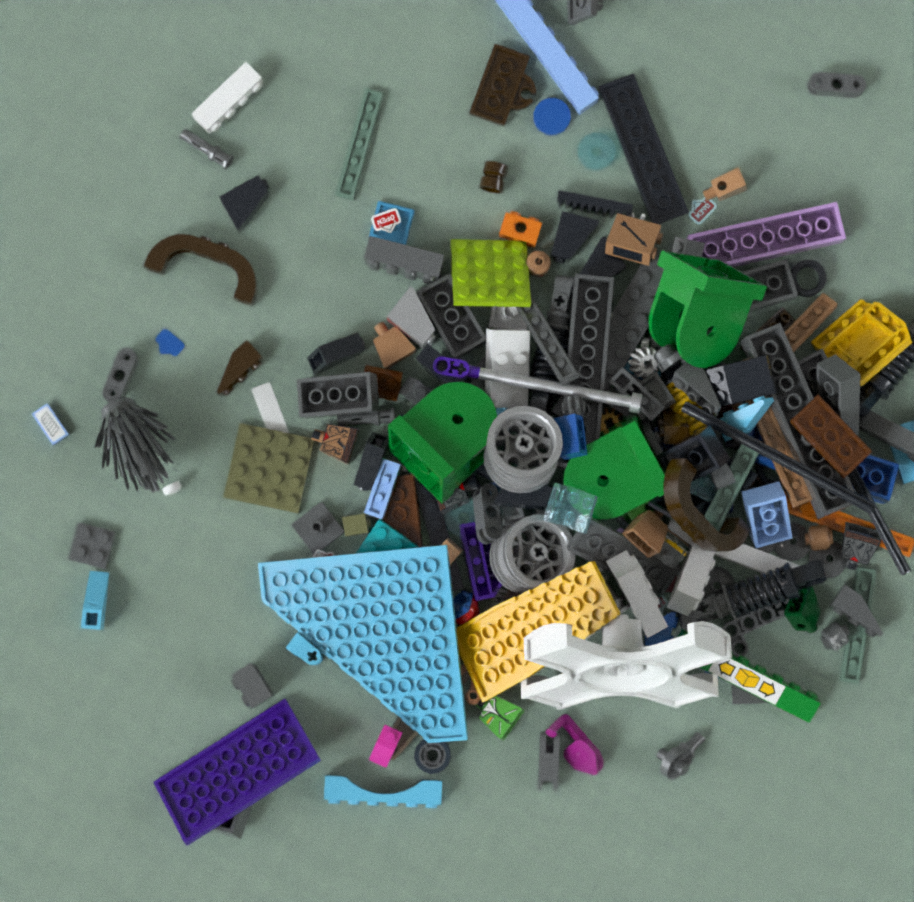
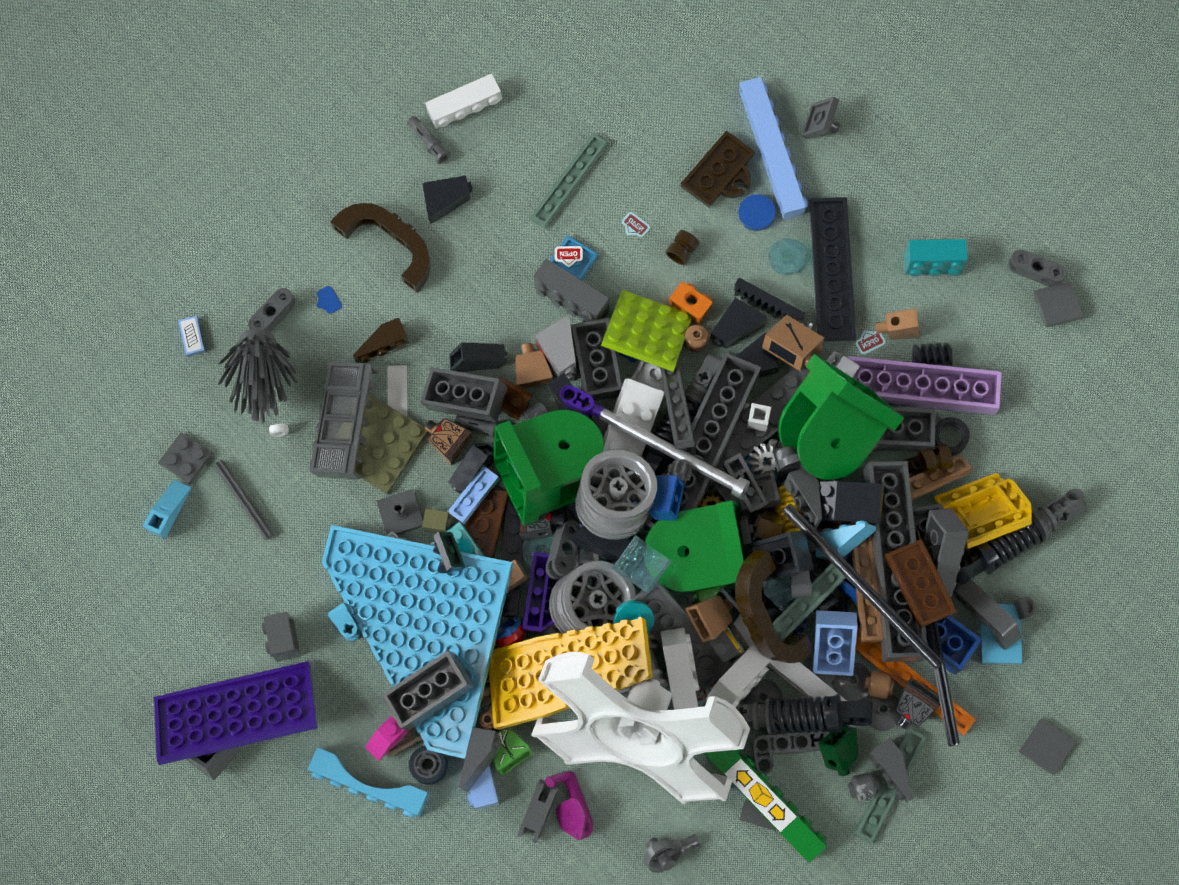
camera: 25 degrees right, 10 degrees down
(163, 566) = (244, 500): none -> dark grey axle
(230, 458) = (342, 420): none -> dark grey window
(379, 550) = (448, 549): none -> black tile
(411, 690) = (428, 690): none -> dark grey brick
(438, 168) = (635, 225): none -> clear light blue sticker
(479, 728) = (480, 753): none -> dark grey slope
(487, 755) = (483, 791): none -> light blue hinge
(578, 555) = (632, 610): none -> teal tile
(627, 325) = (759, 417): none -> white brick
(738, 107) = (935, 257): none -> teal brick
(765, 204) = (932, 354): none -> black piece
(804, 306) = (935, 459): none -> dark brown wheel
(867, 114) = (1058, 304): none -> dark grey slope

